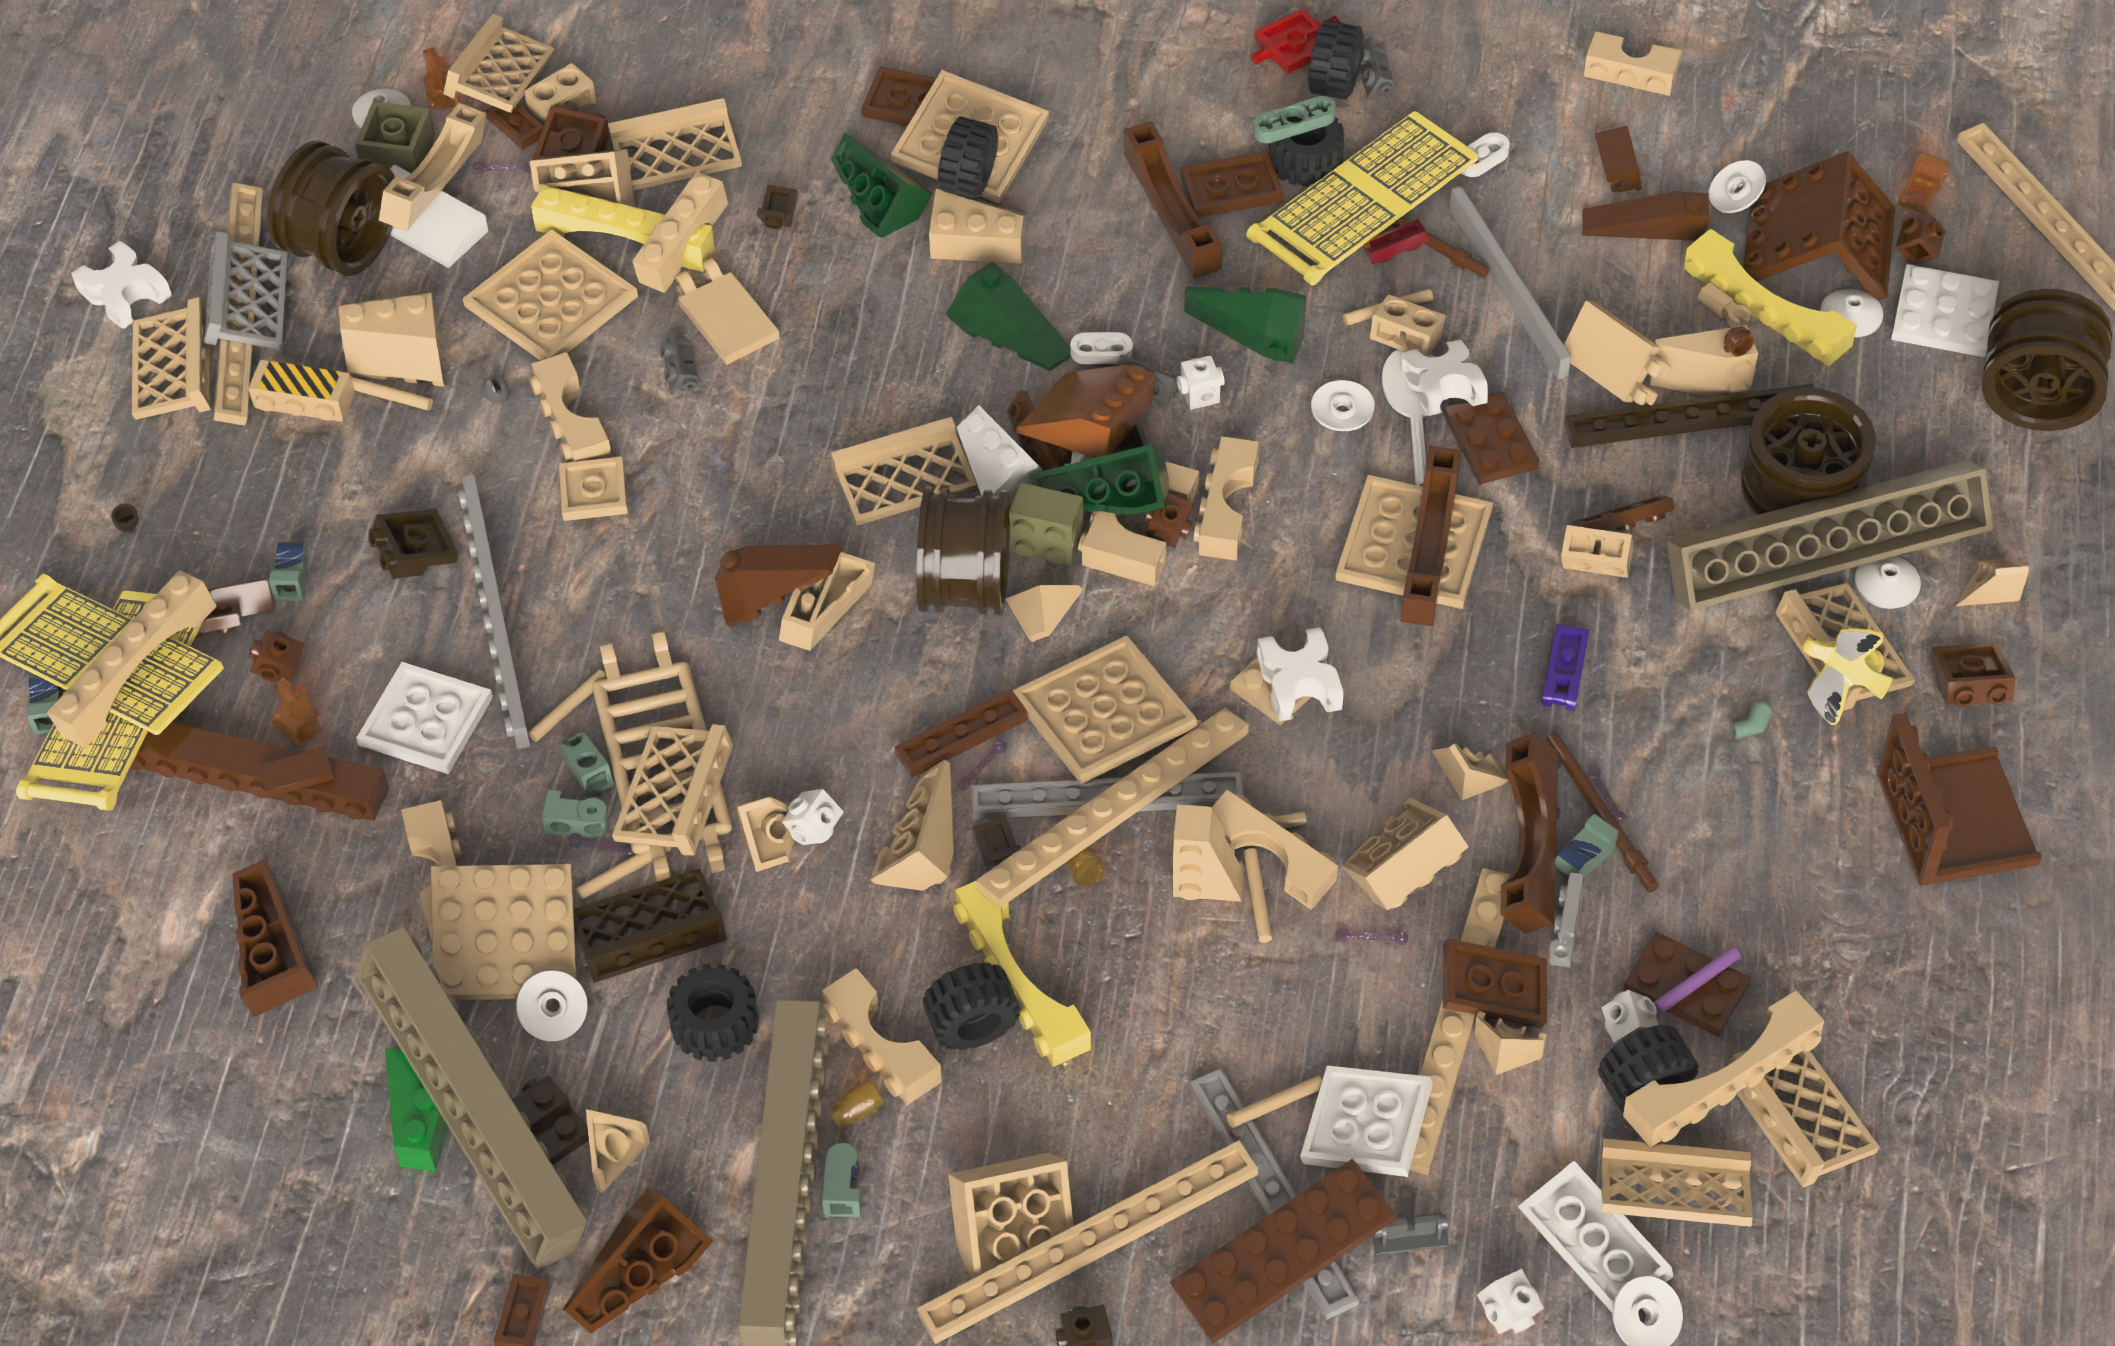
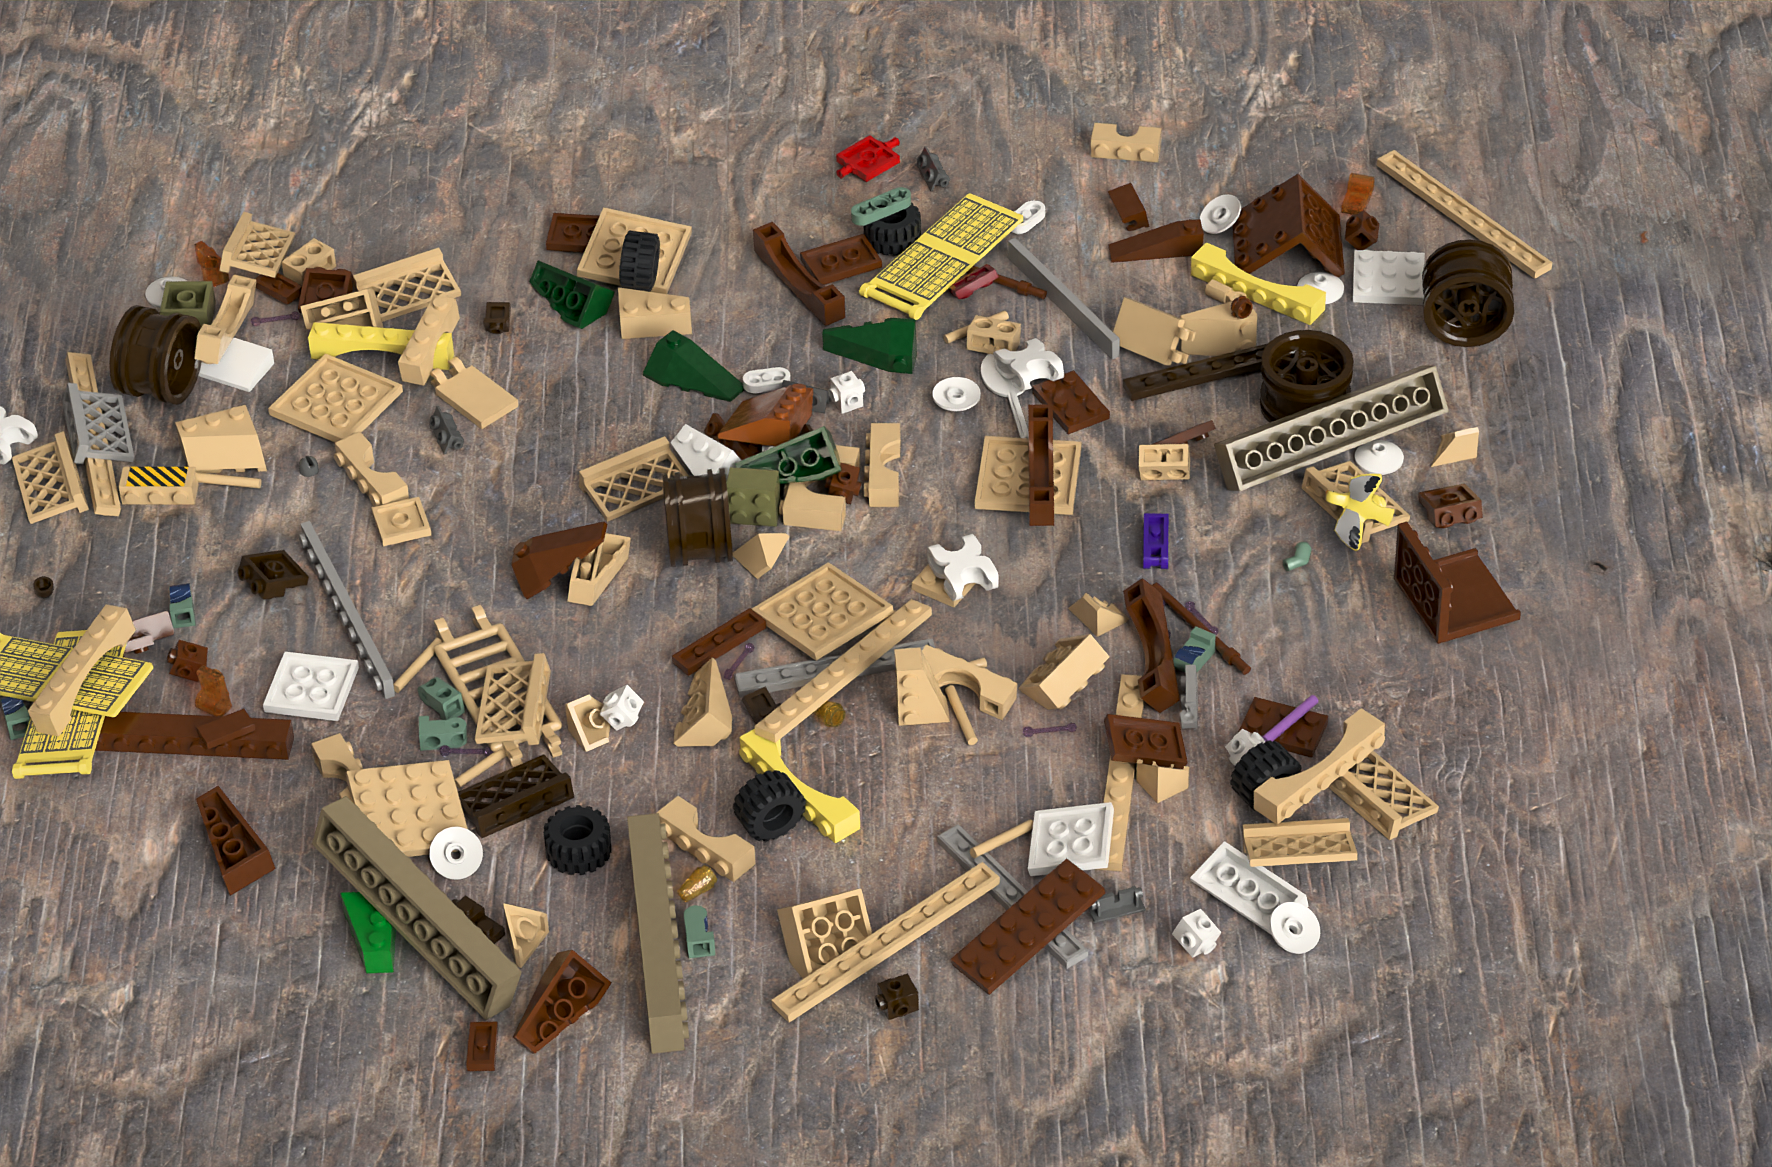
camera: 10 degrees left, 10 degrees down
(1335, 59) = (903, 163): black tyre -> none

